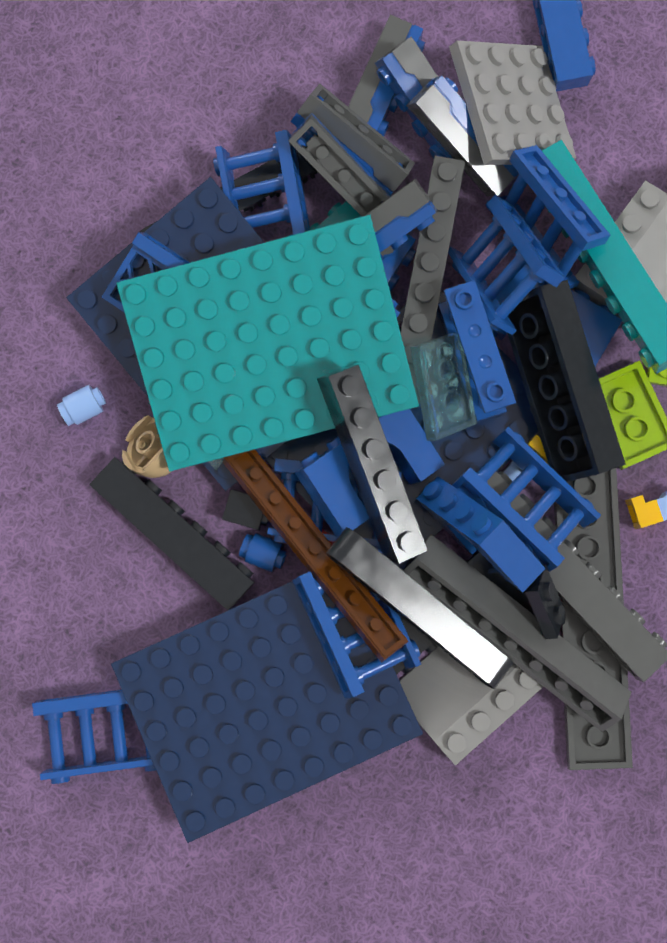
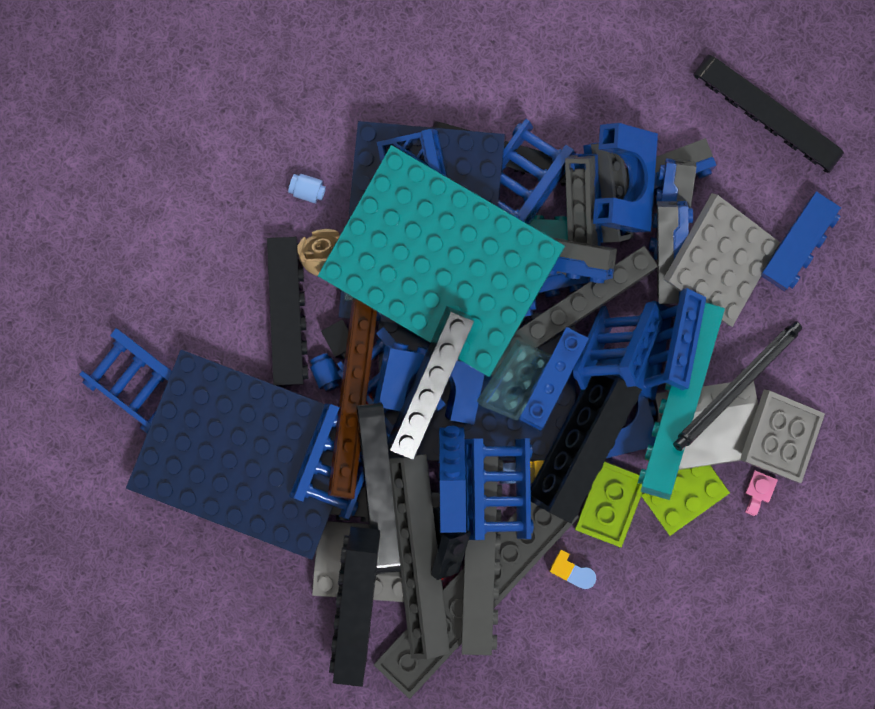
camera: 50 degrees right, 0 degrees up
(343, 77) = (639, 153): none -> blue arch
(508, 737) = (354, 606): none -> black brick
(643, 200) = (737, 386): none -> black piece

